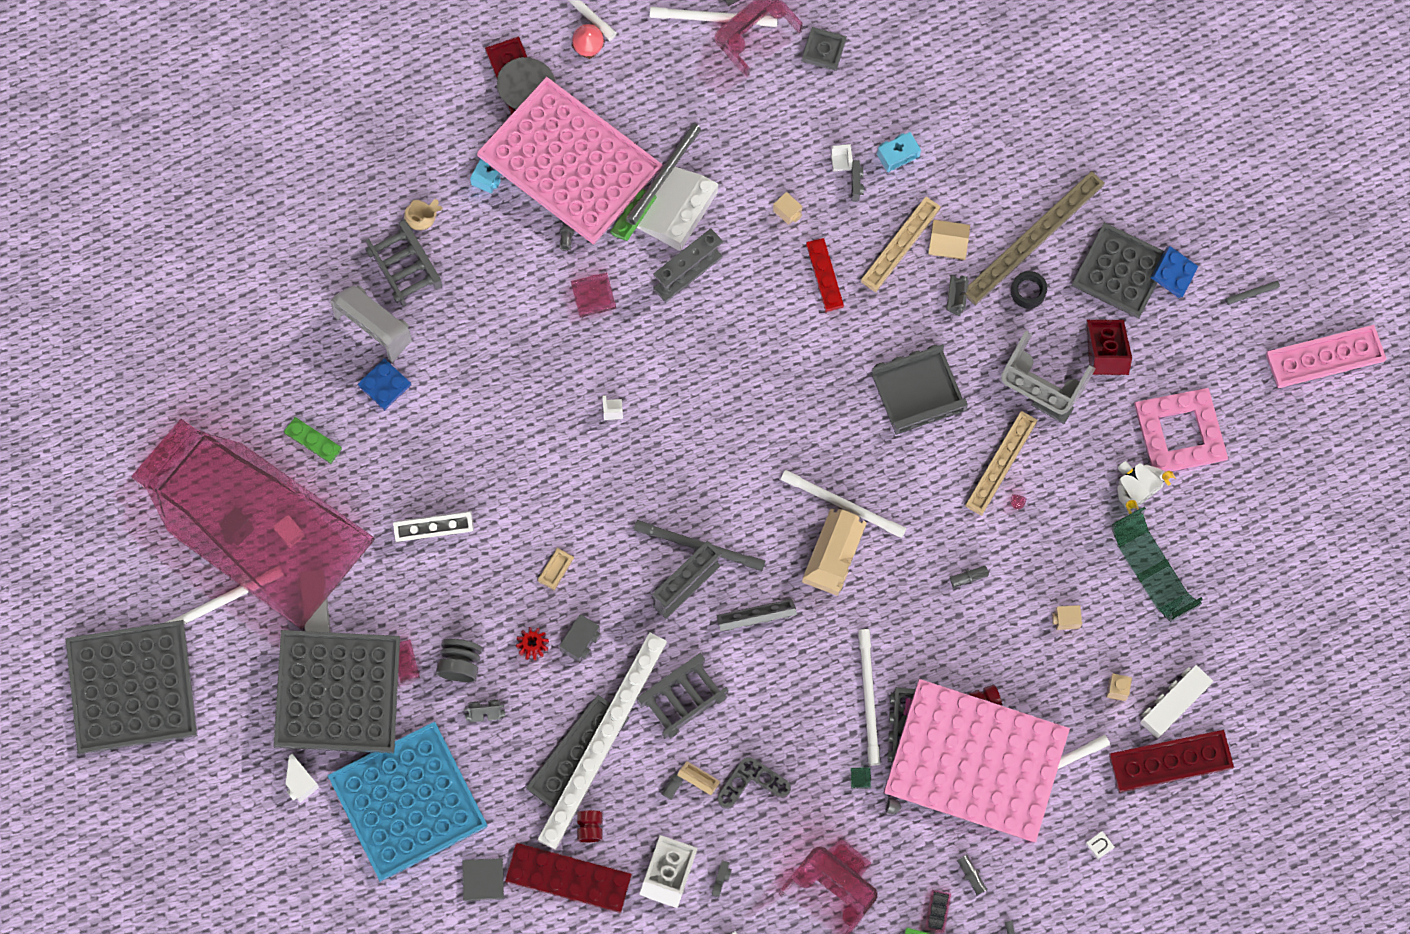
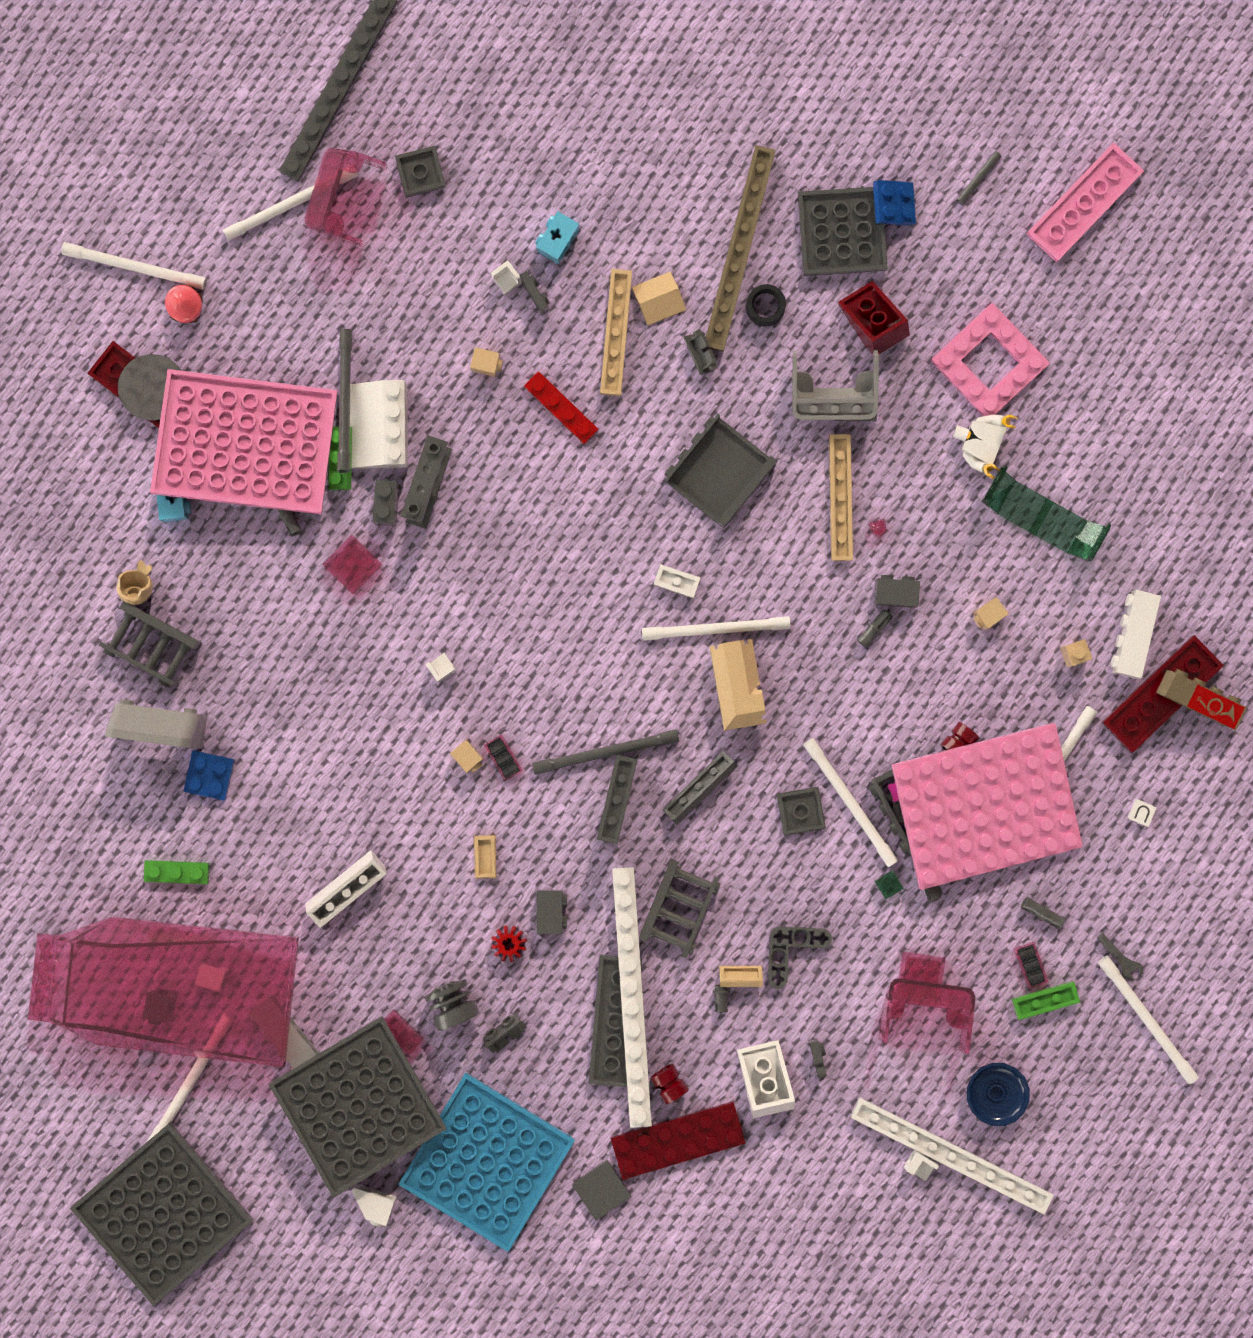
camera: 25 degrees left, 15 degrees up
(590, 485) = (467, 757): none -> tan brick
(617, 503) = (503, 757): none -> tile
(647, 264) = (385, 502): none -> dark grey brick
(825, 681) = (801, 811): none -> dark grey tile
(834, 450) = (676, 581): none -> white plate
(1002, 558) = (897, 592): none -> dark grey brick
(1199, 780) = (1202, 699): none -> brick

